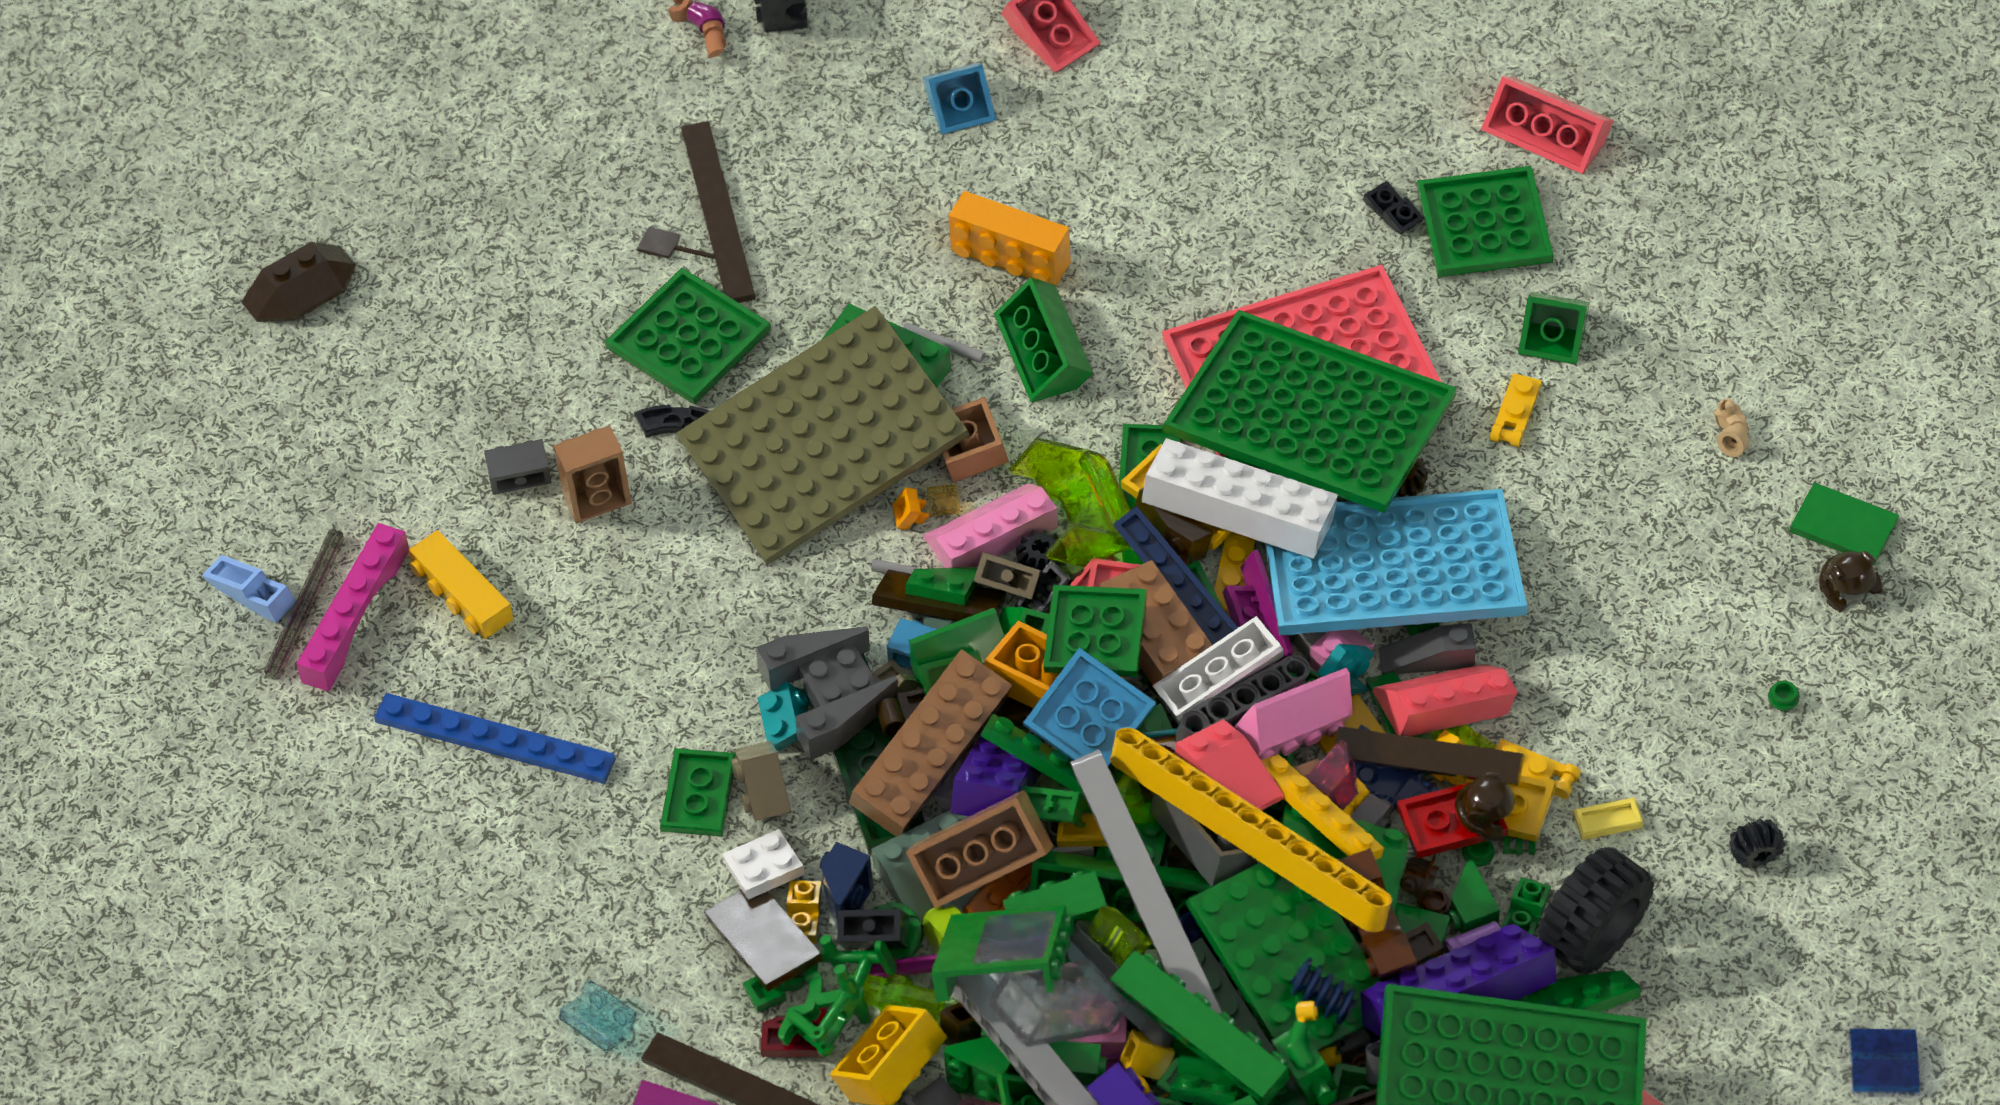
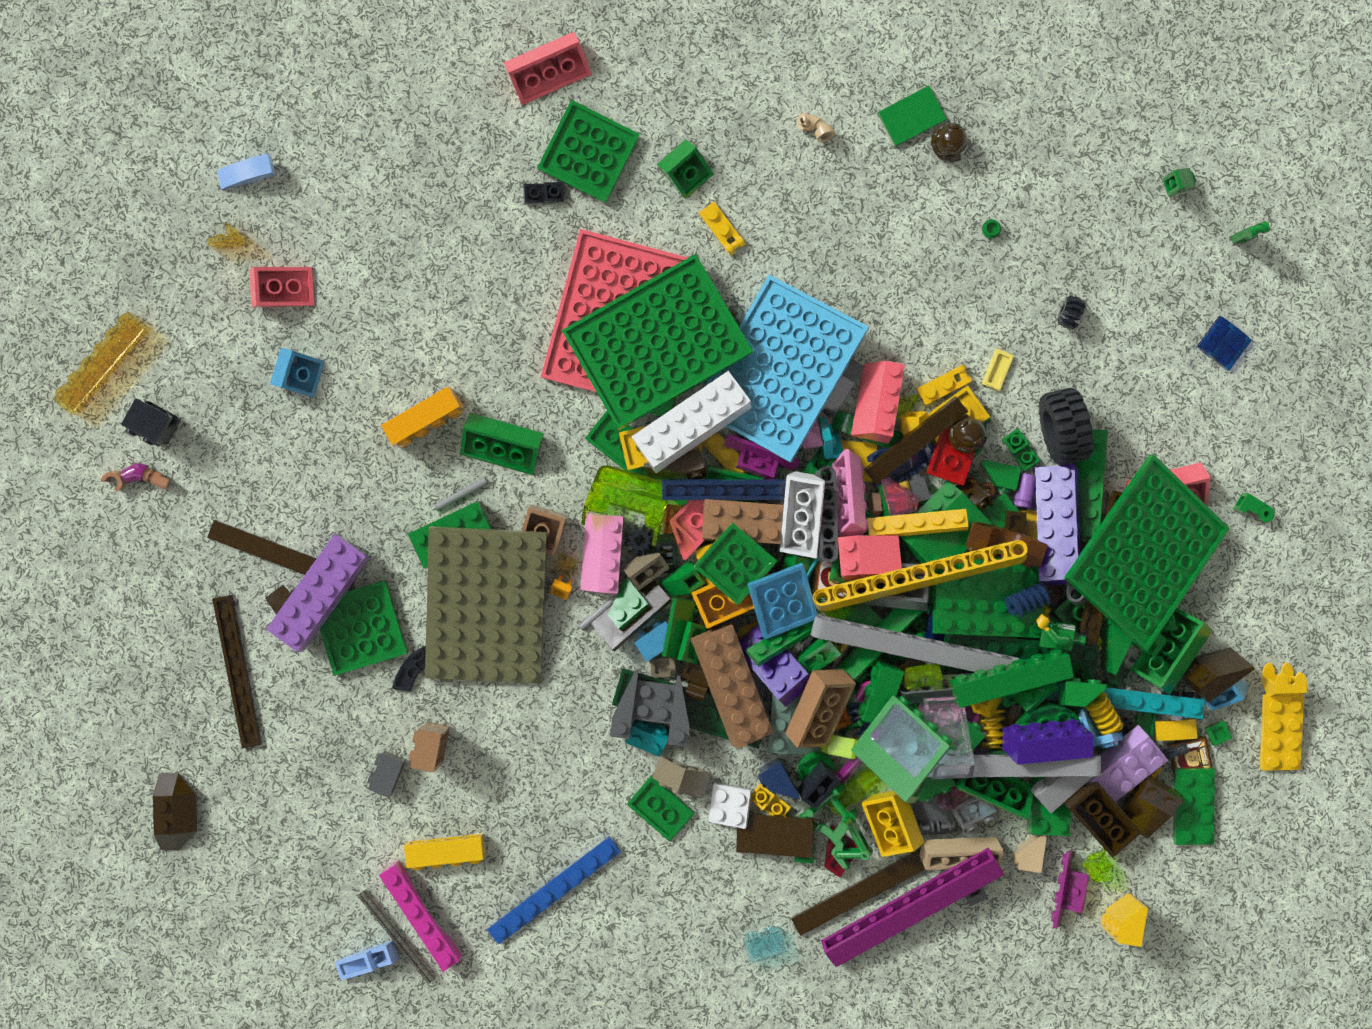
camera: 60 degrees left, 35 degrees up
(532, 250) = (237, 671): none -> dark brown tile
(700, 259) = (318, 593): none -> medium lavender brick

